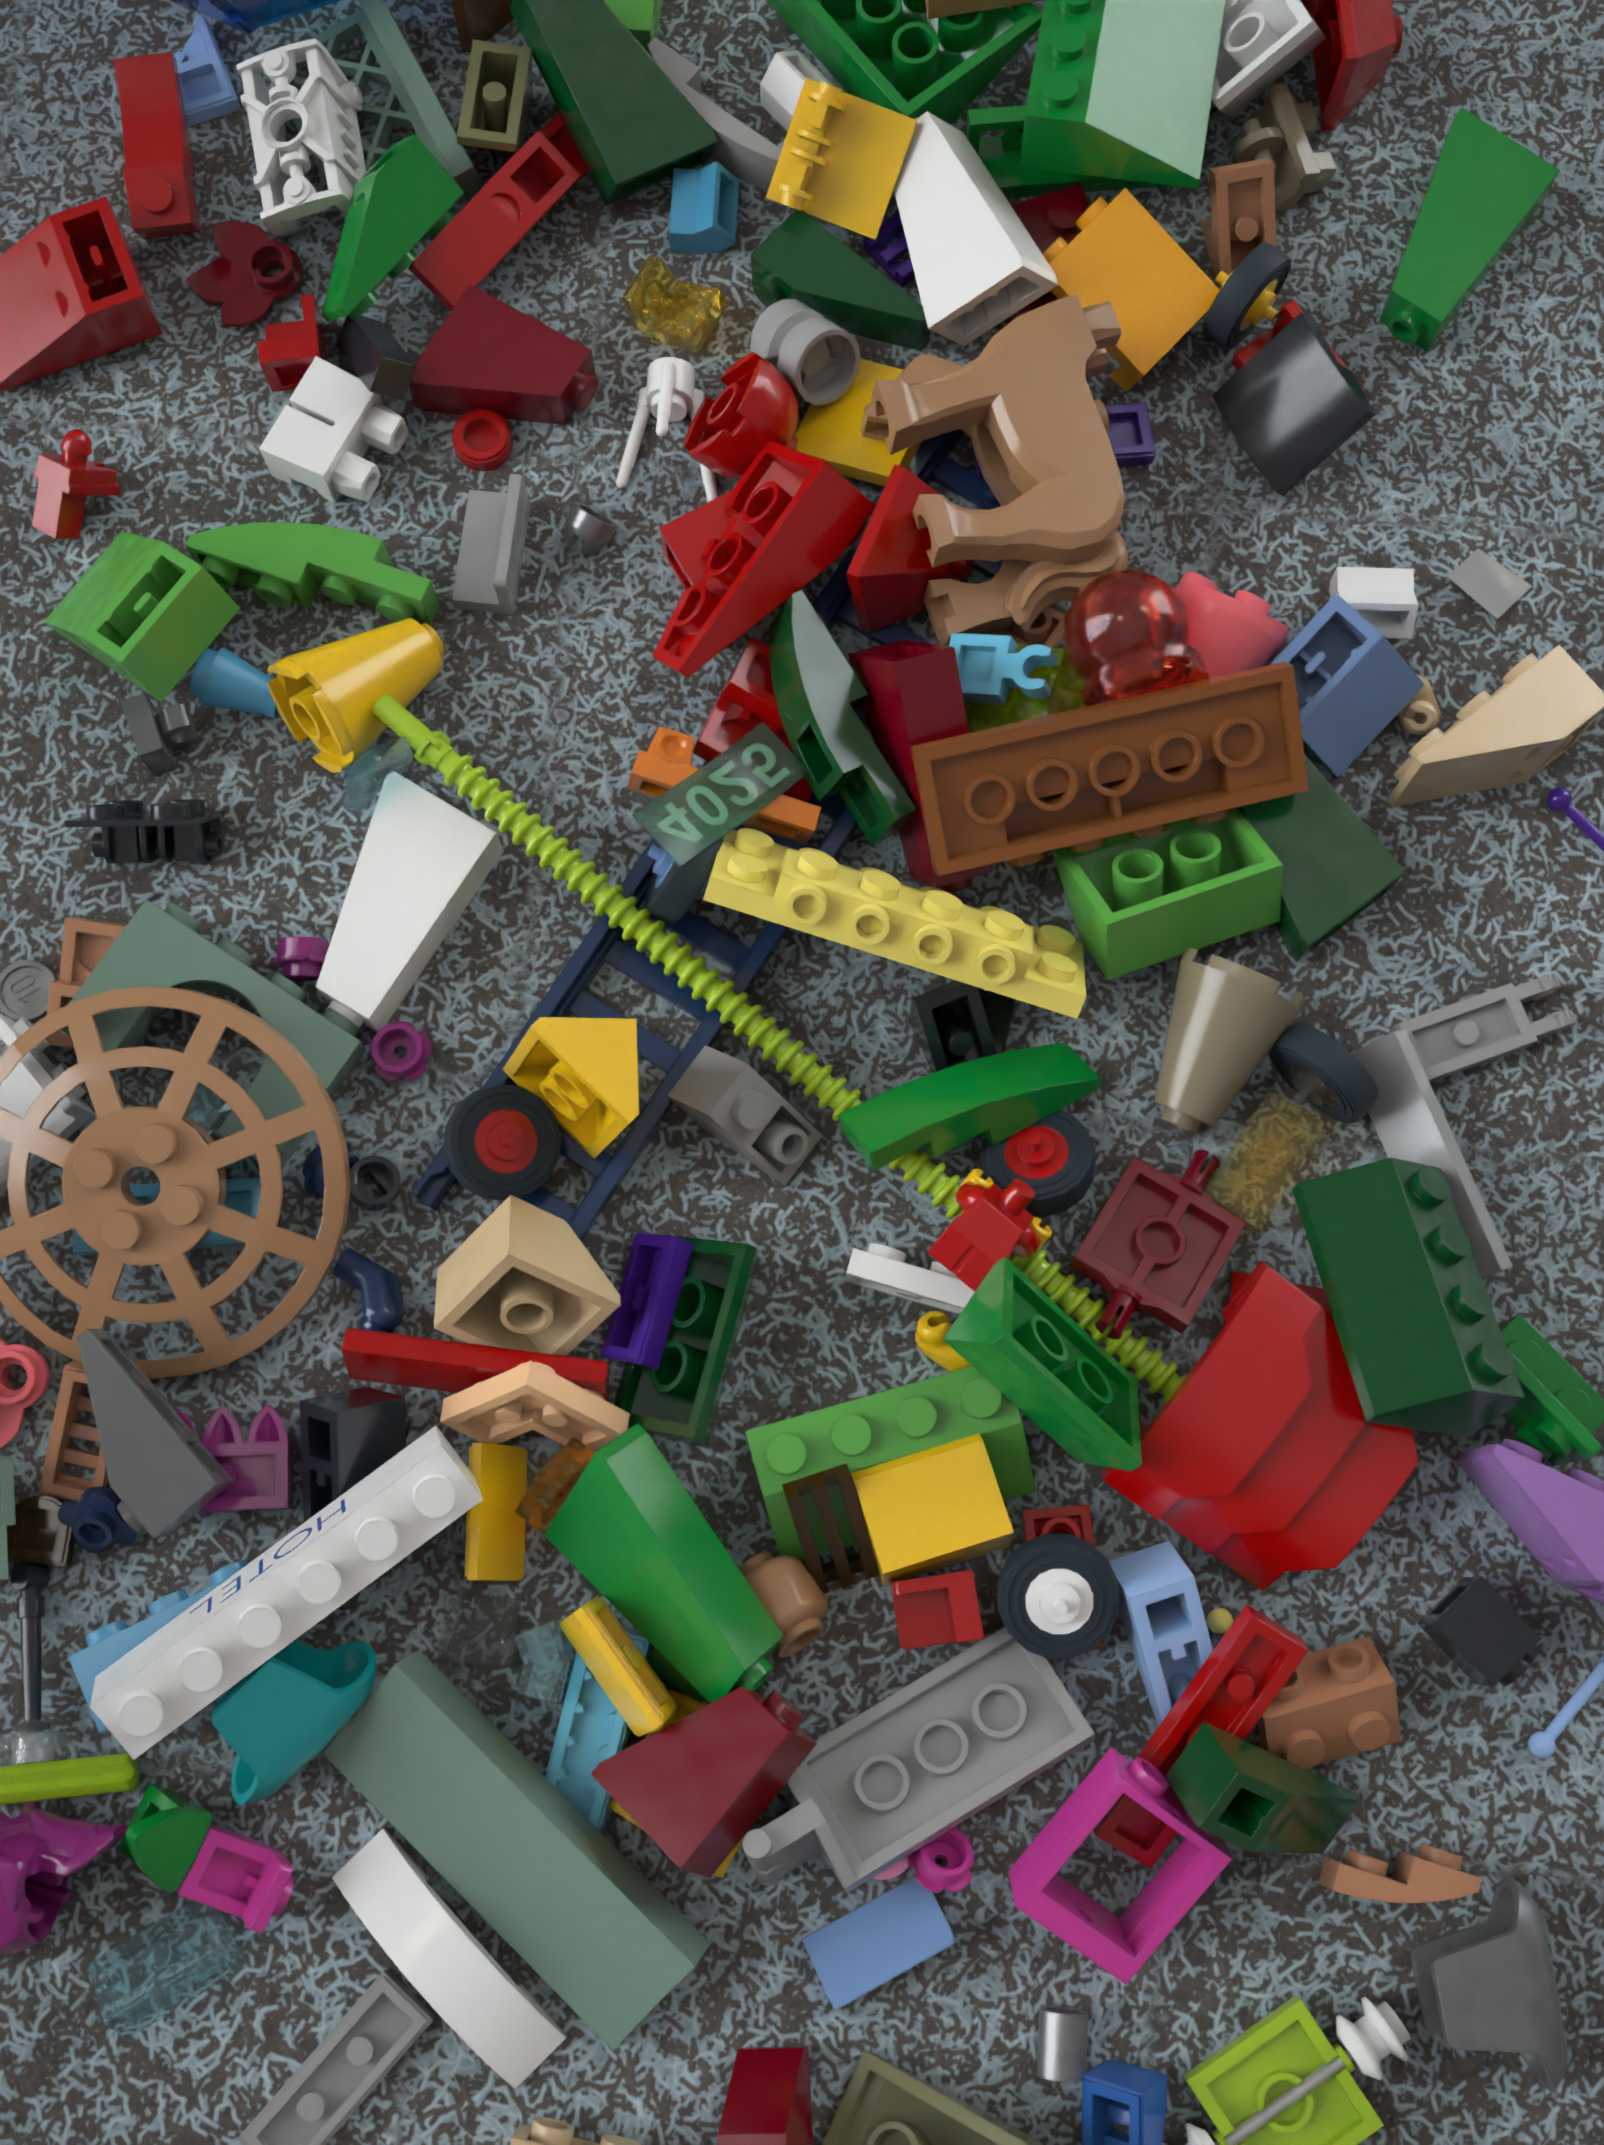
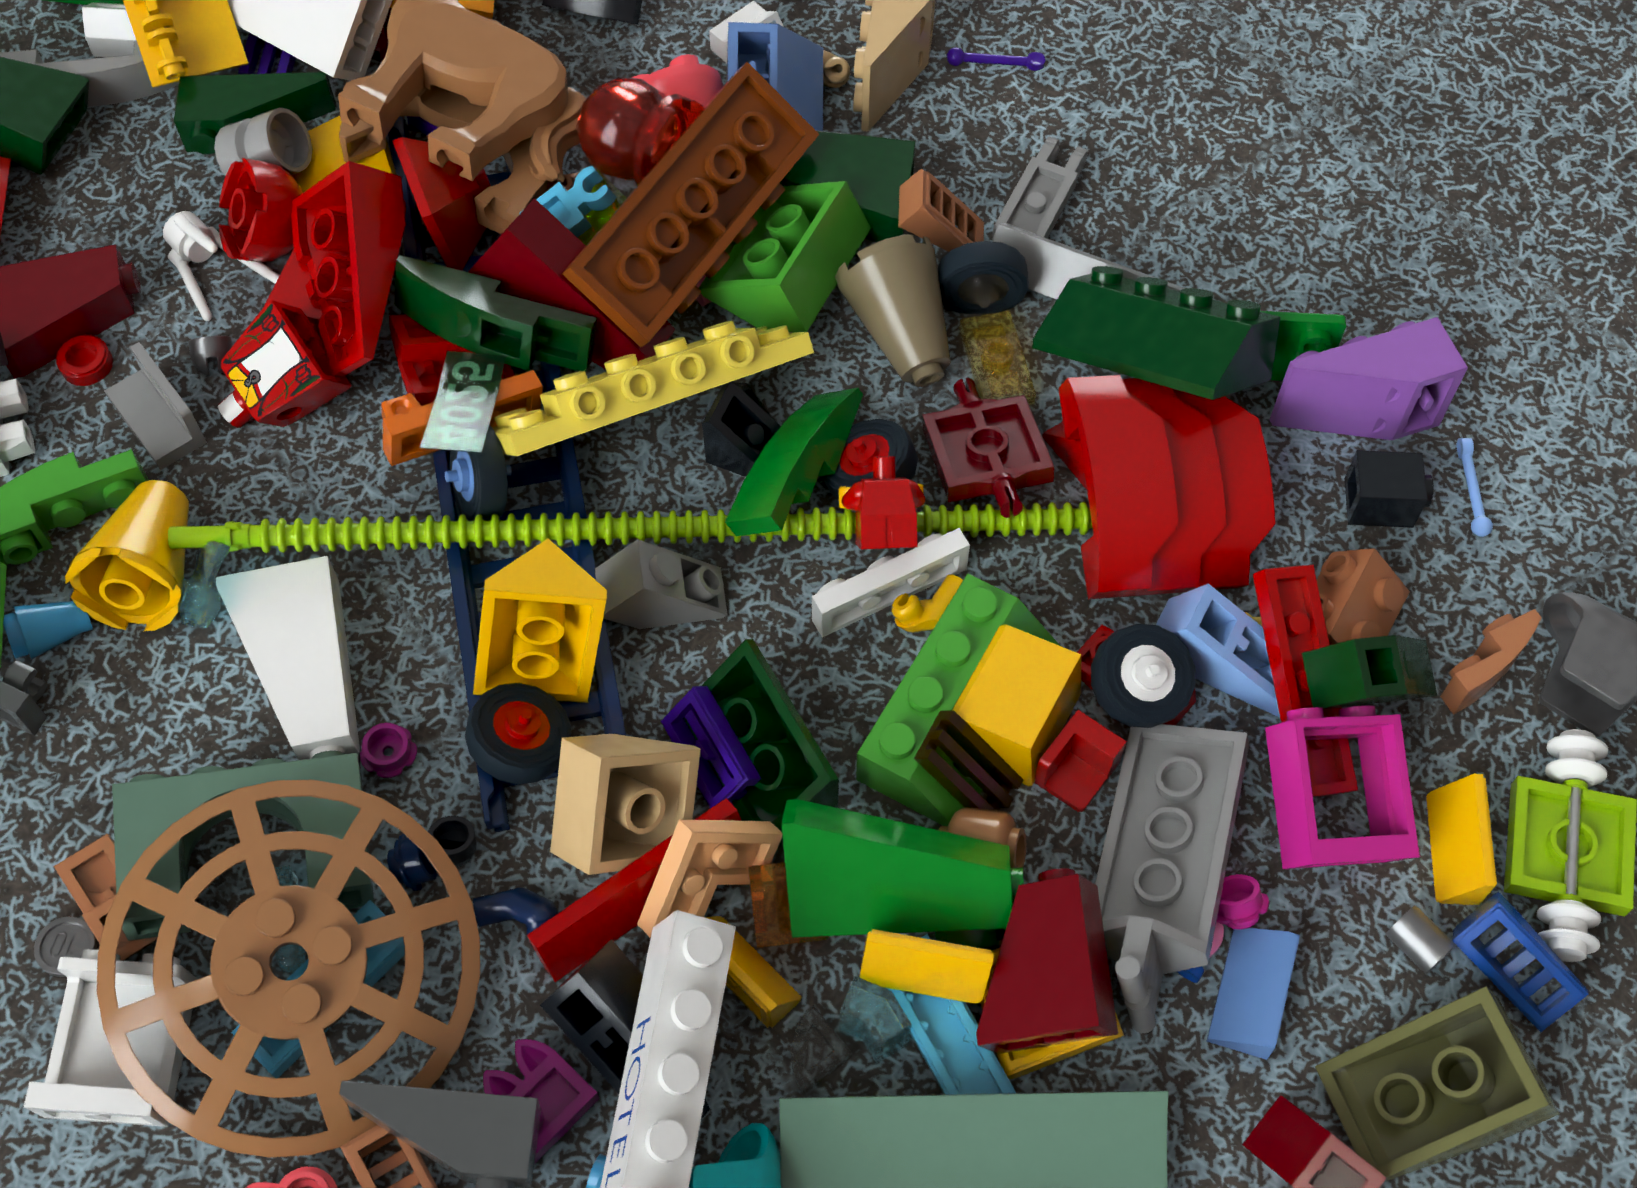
camera: 45 degrees left, 15 degrees down
(132, 832) = (36, 763): black hinge -> none
(301, 957) = (258, 744): magenta plate -> none
(617, 603) = (278, 370): none -> torso
(671, 308) = (149, 194): clear yellow bracket -> none
(703, 209) = (112, 130): dark azure piece -> none
(1050, 1369) = (1005, 554): green slope -> none
(1189, 2000) = (1461, 841): none -> yellow slope
(1318, 959) = (933, 211): none -> nougat slope

